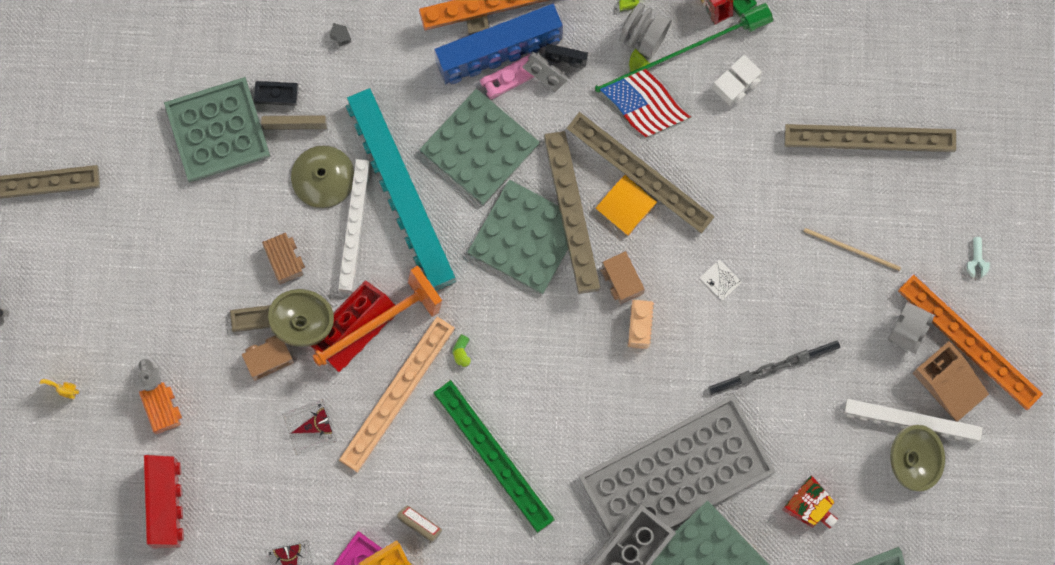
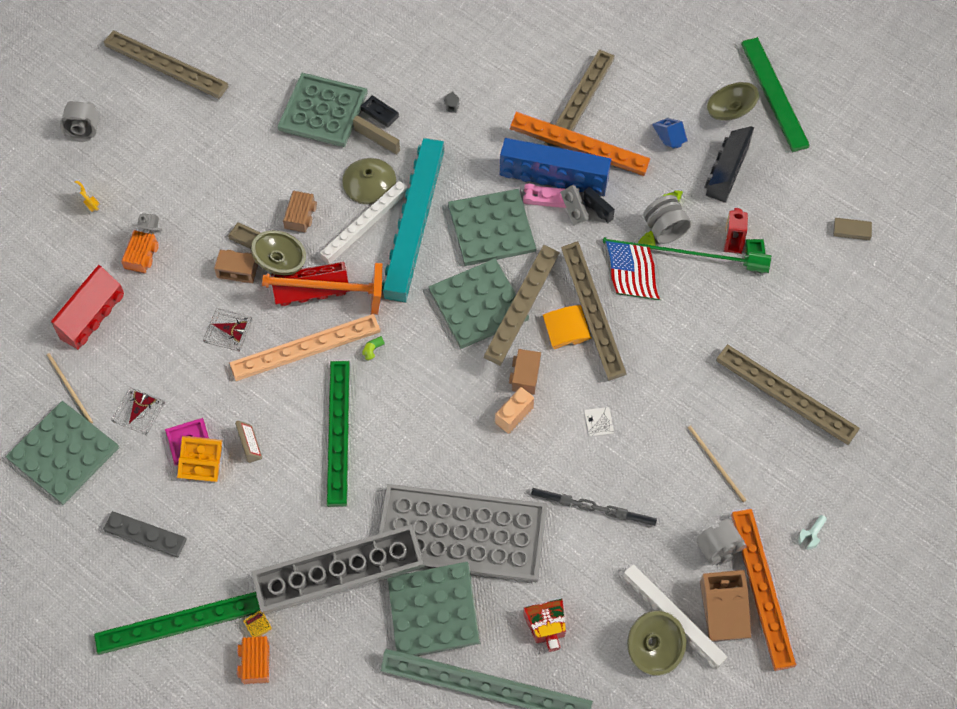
camera: 35 degrees right, 15 degrees down
(733, 84) = (706, 297): white piece -> none

